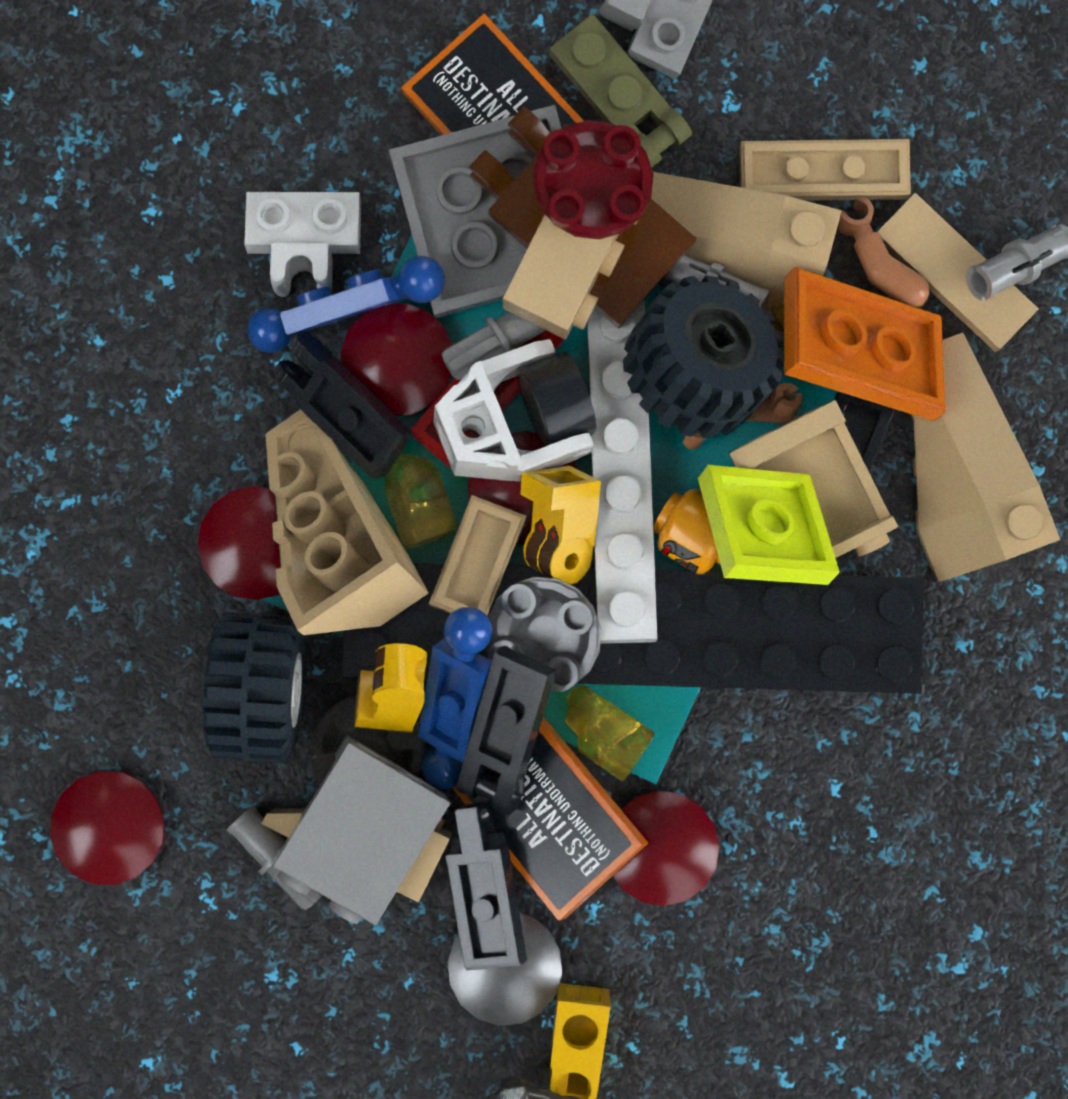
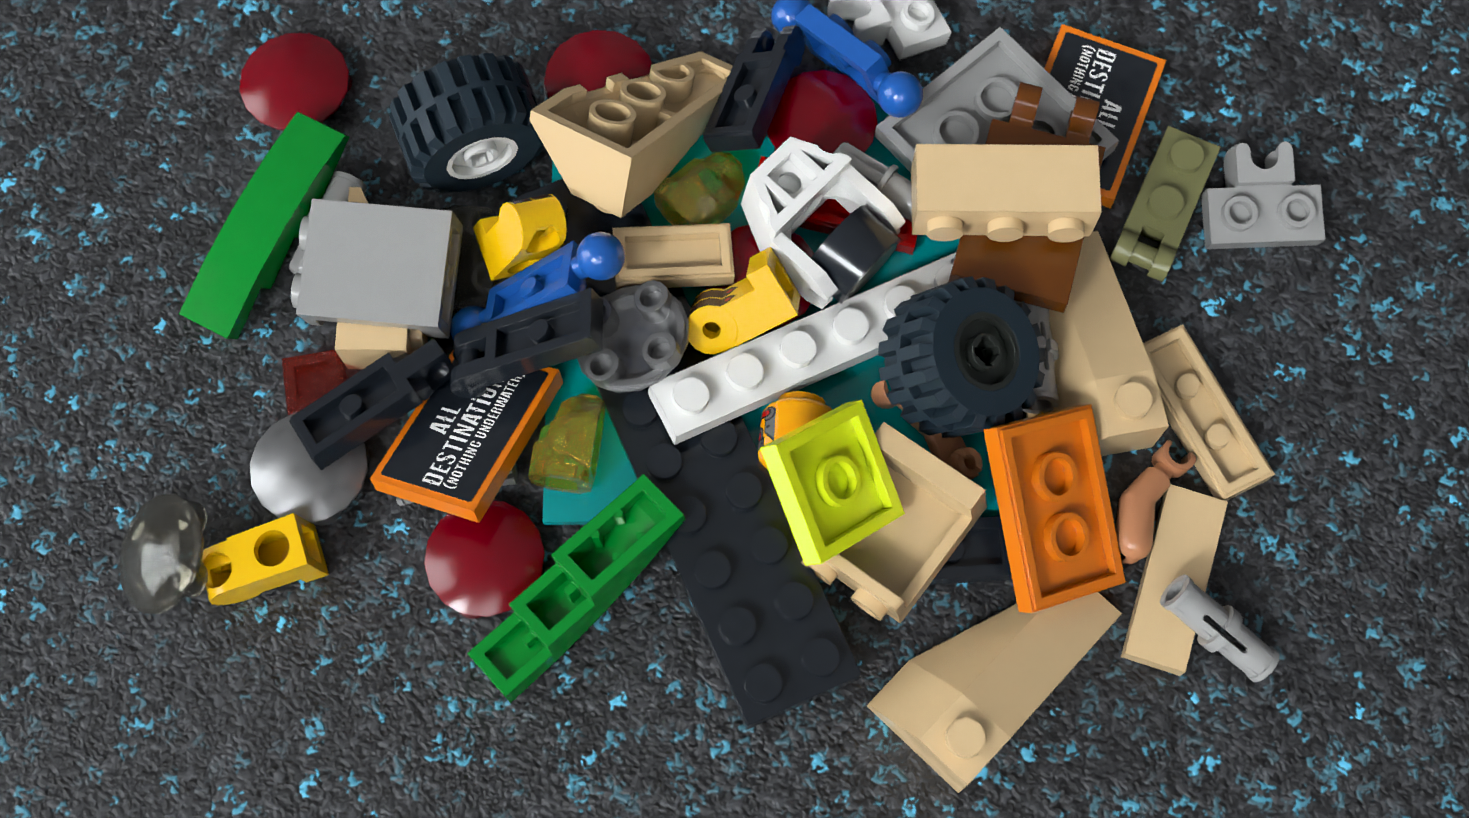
camera: 65 degrees right, 15 degrees down
(251, 914) = (263, 225): none -> green slope
(426, 931) = (311, 377): none -> clear red tile
(593, 179) = (1064, 162): dark red dish -> none
(734, 781) = (578, 588): none -> green slope

